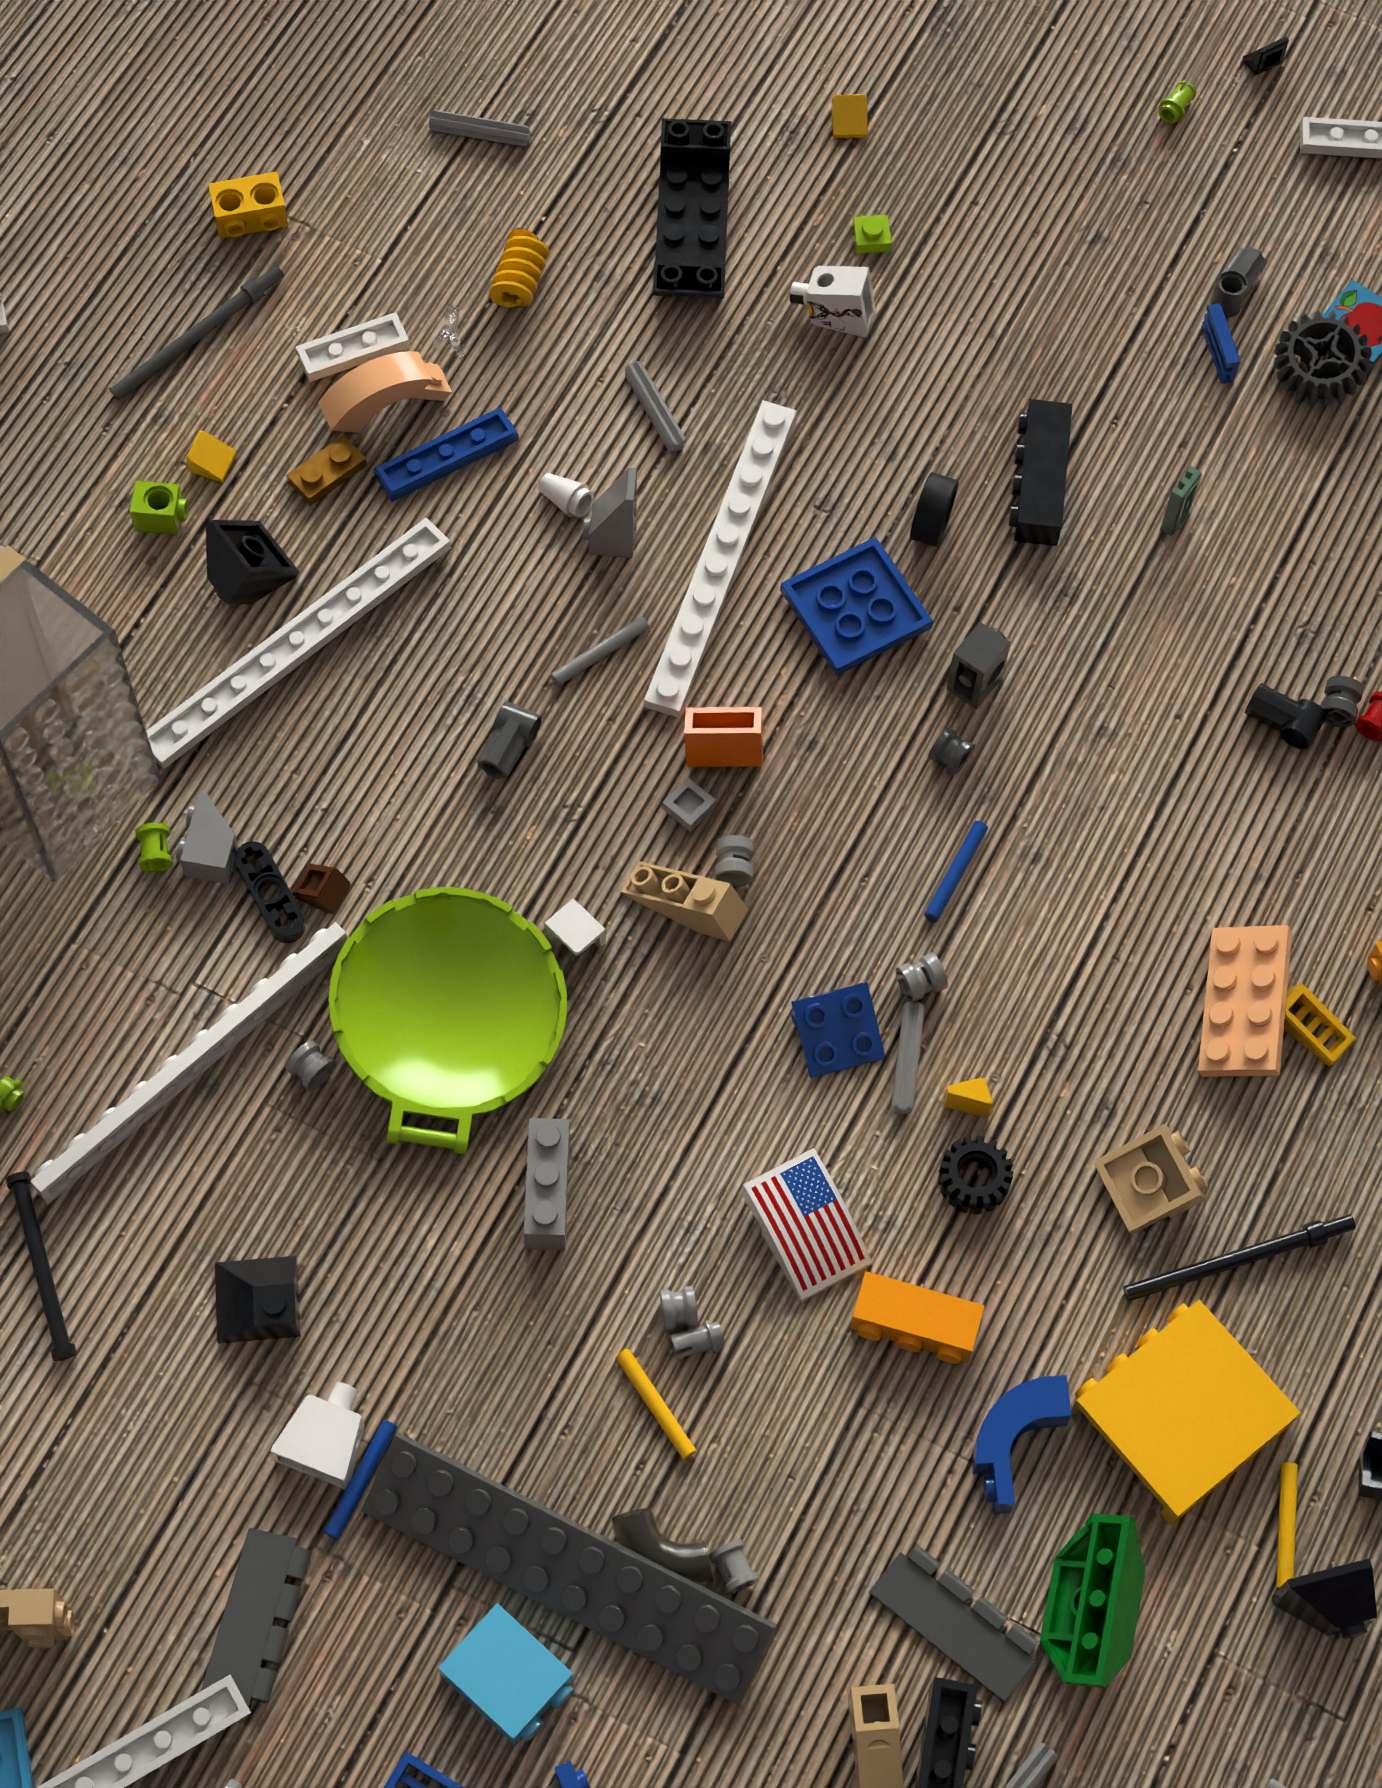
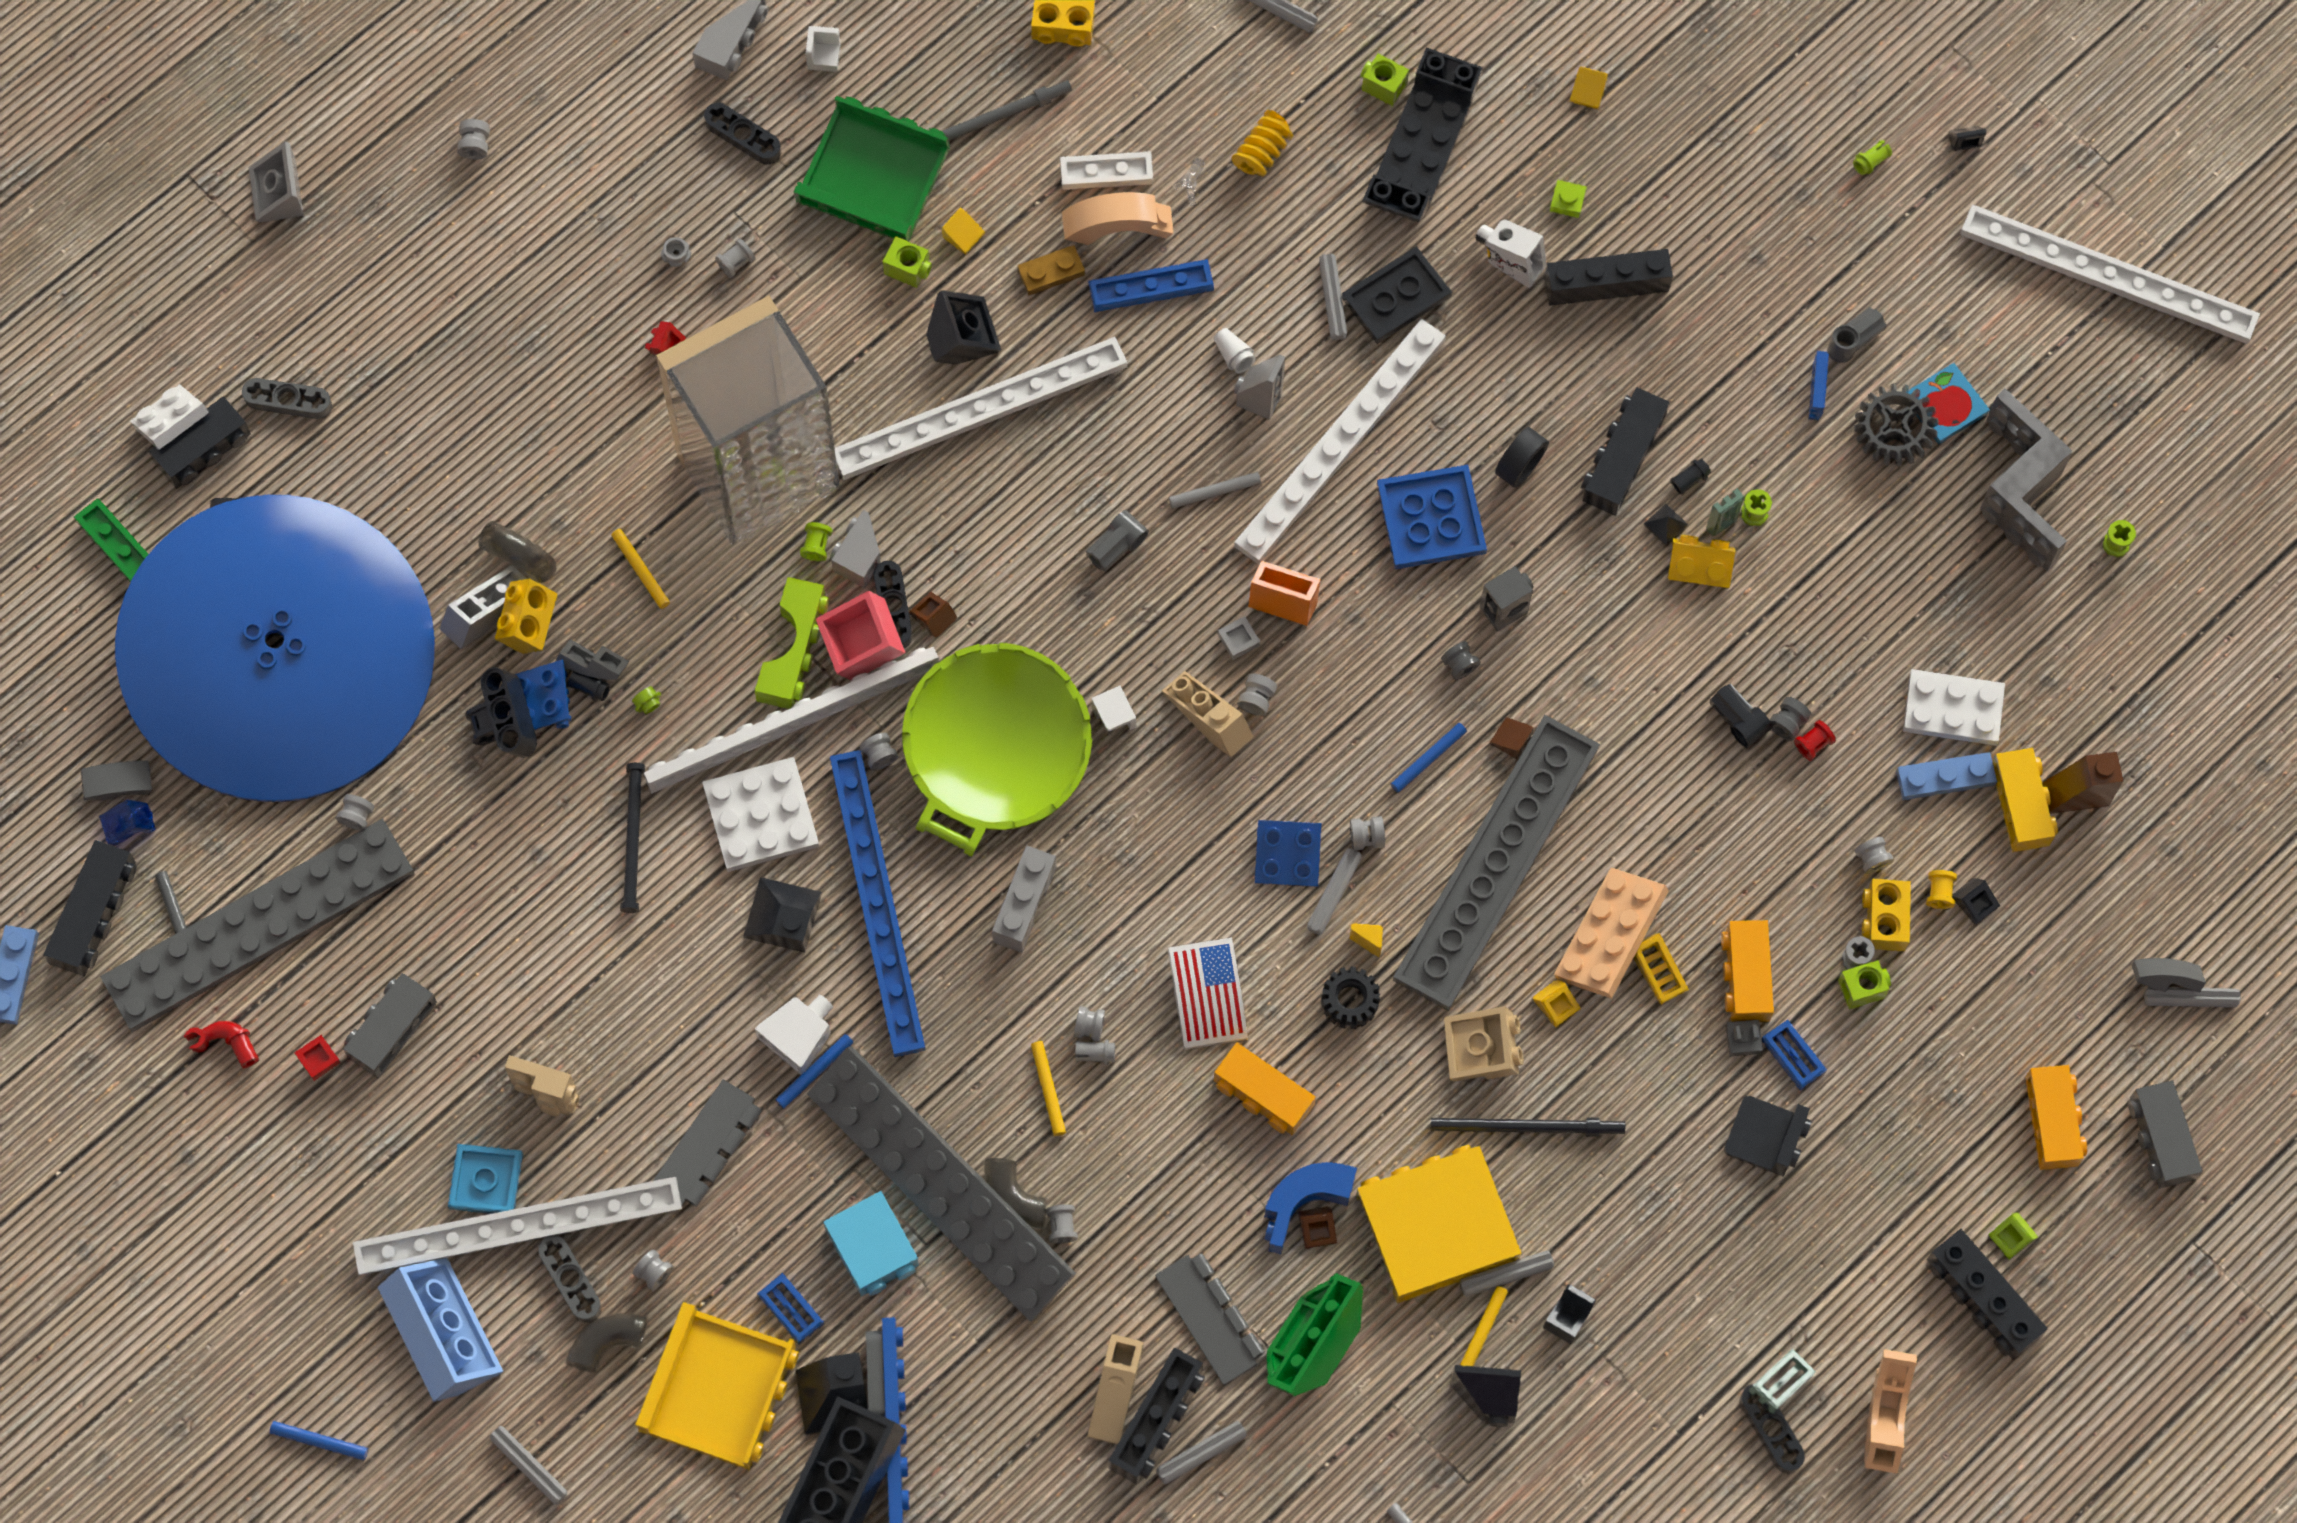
camera: 20 degrees right, 5 degrees up
(85, 418) = (873, 169): none -> green panel
(164, 1017) = (781, 679): none -> lime arch
(190, 1186) = (760, 814): none -> white plate
(243, 936) = (860, 635): none -> coral piece
(372, 1250) = (877, 904): none -> blue plate
(626, 167) = (1388, 90): none -> lime brick
(725, 384) = (1396, 295): none -> black plate
(950, 298) = (1608, 277): none -> black brick
(1041, 818) = (1512, 737): none -> reddish brown slope
(1042, 1463) = (1317, 1227): none -> reddish brown slope
(1081, 968) = (1496, 862): none -> dark grey plate
(1115, 537) = (1665, 524): none -> black slope
(1128, 471) = (1691, 476): none -> black pin
(1174, 564) = (1701, 561): none -> yellow bracket
(1213, 491) = (1759, 515): none -> lime bush
(1213, 1101) = (1556, 1002): none -> yellow slope
(1287, 1443) = (1506, 1273): none -> light grey axle

